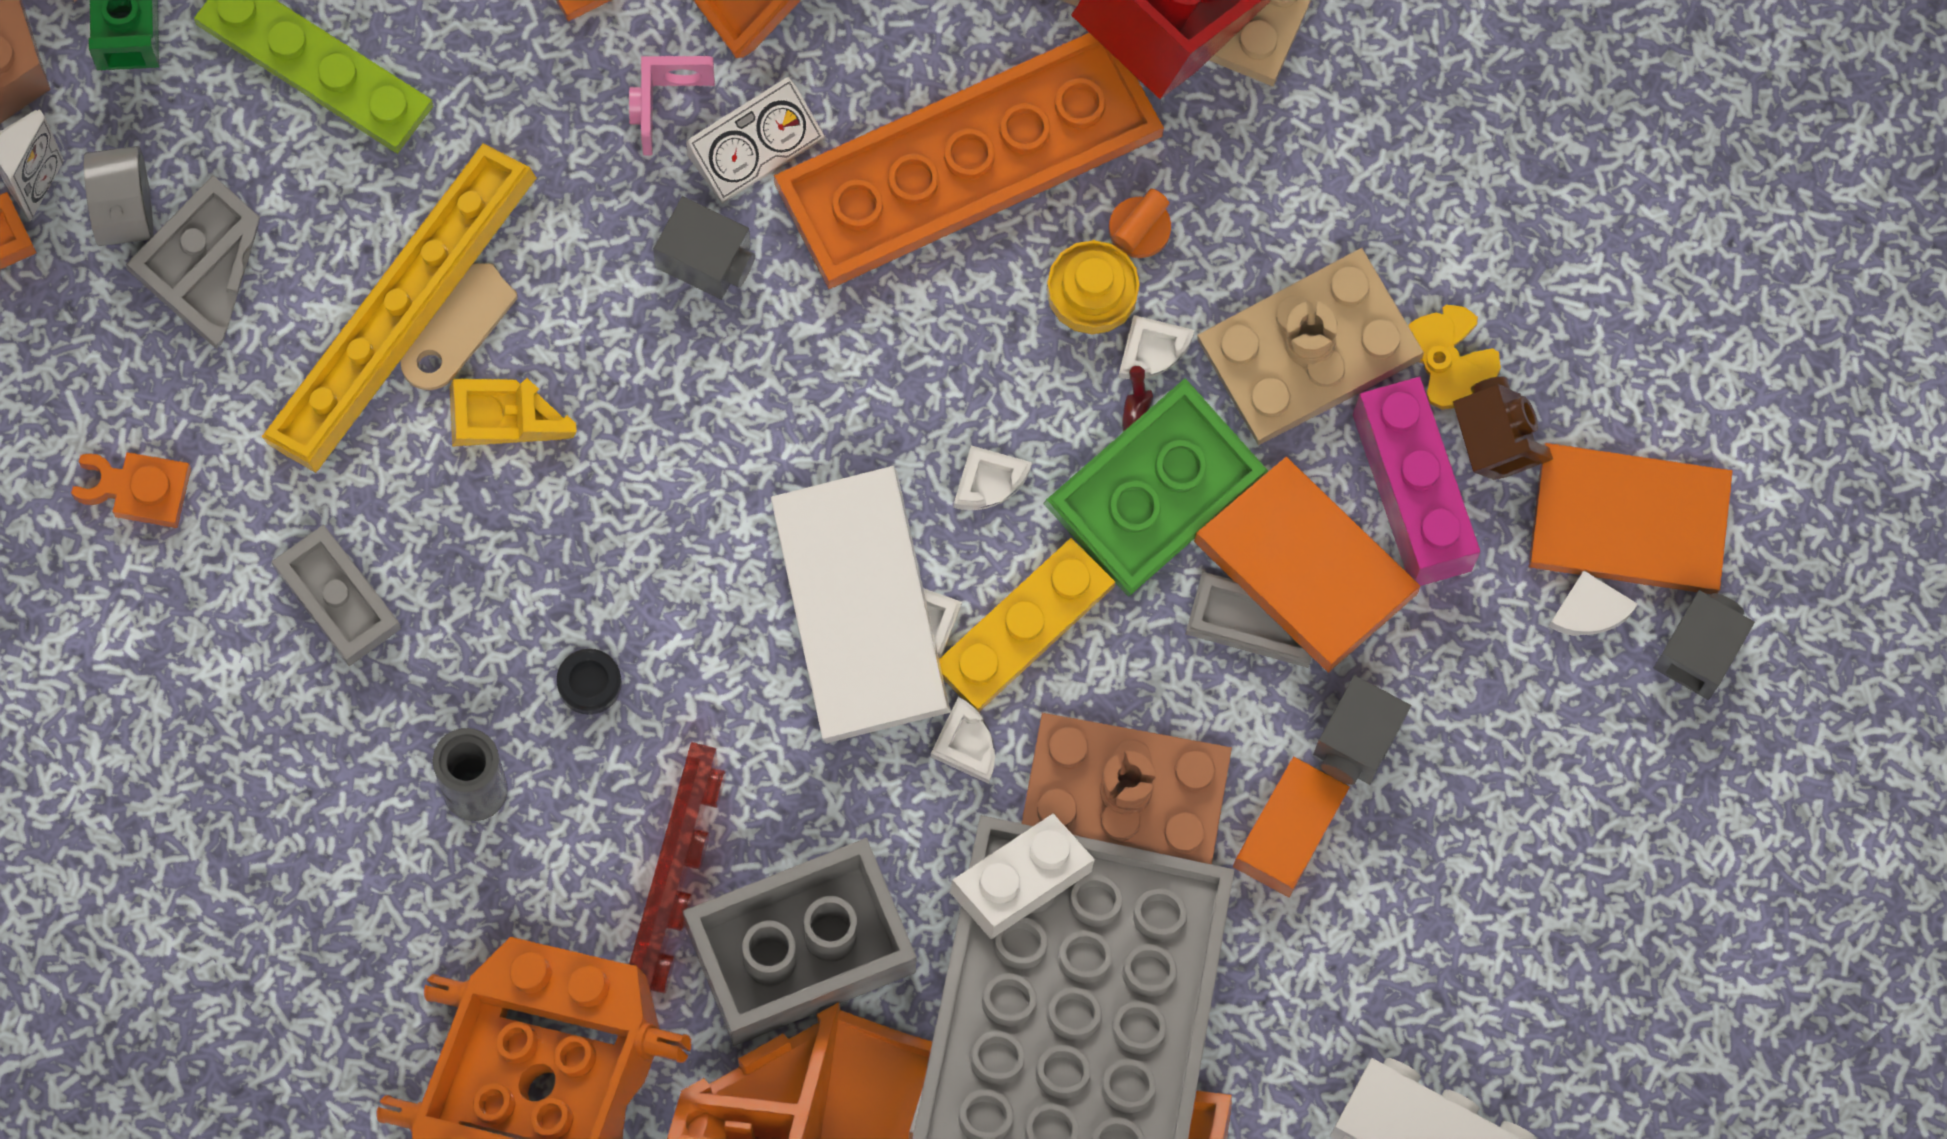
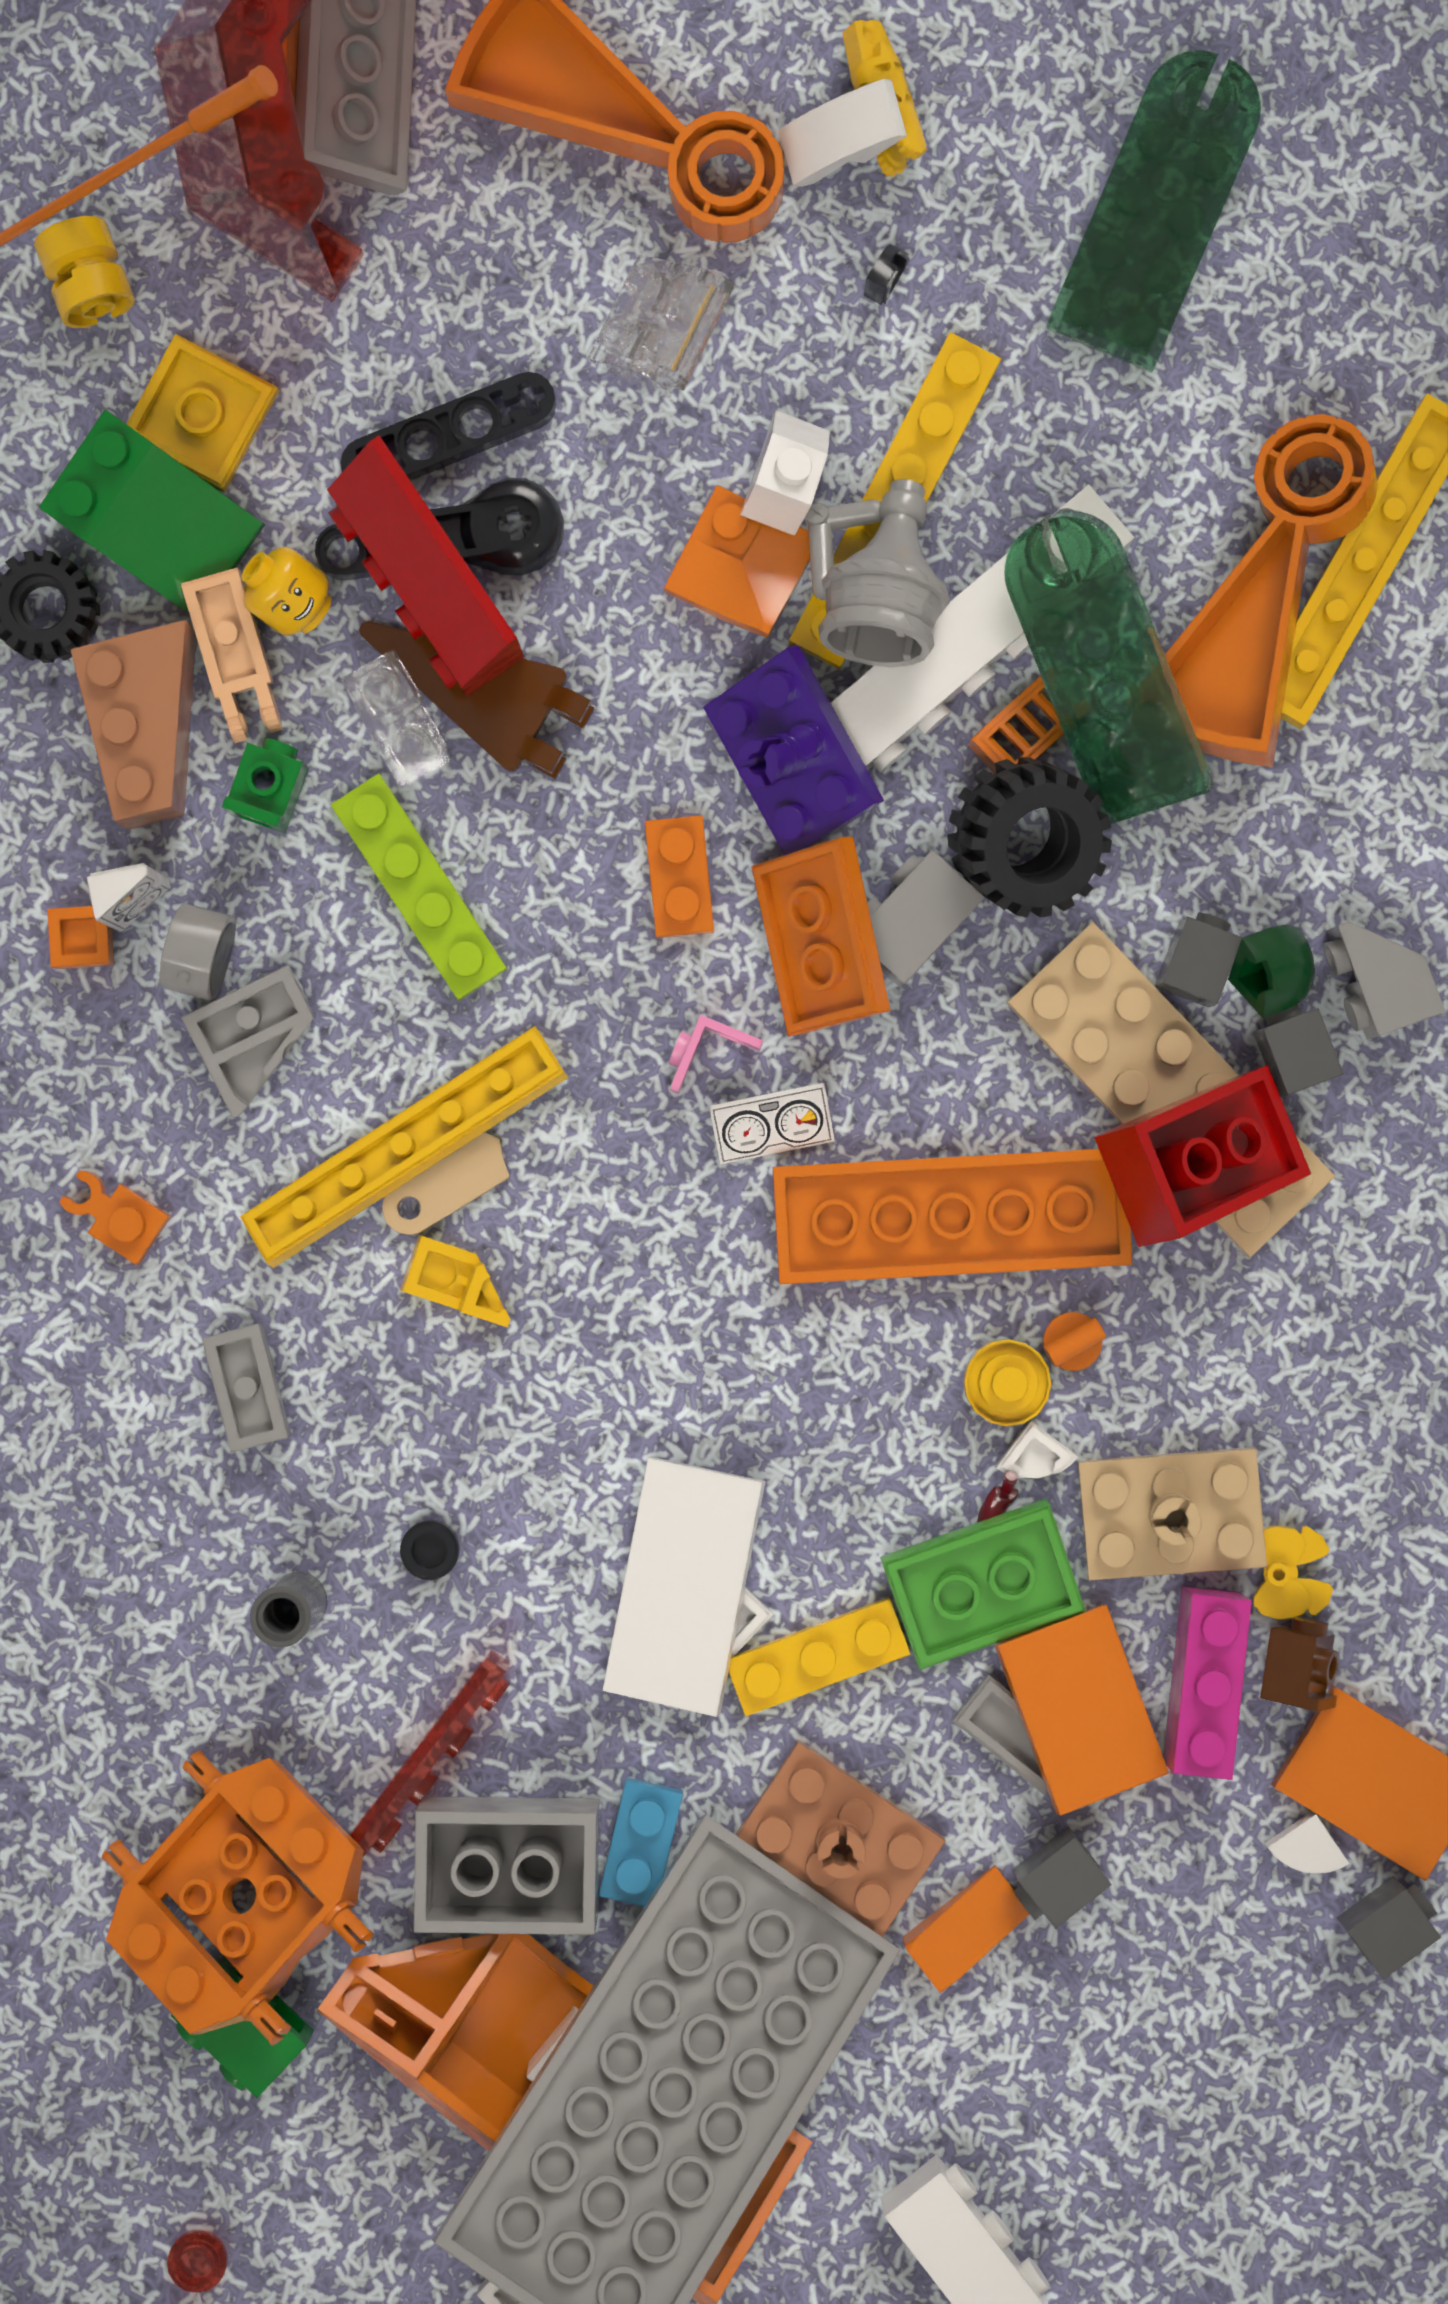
camera: 30 degrees right, 15 degrees up
(704, 249) = (685, 1209): dark grey brick -> none
(923, 872) = (640, 1841): none -> dark azure plate
(966, 742) = (724, 1738): white tile -> none
(989, 479) = (843, 1513): white tile -> none
(1022, 876) = (715, 1894): white plate -> none

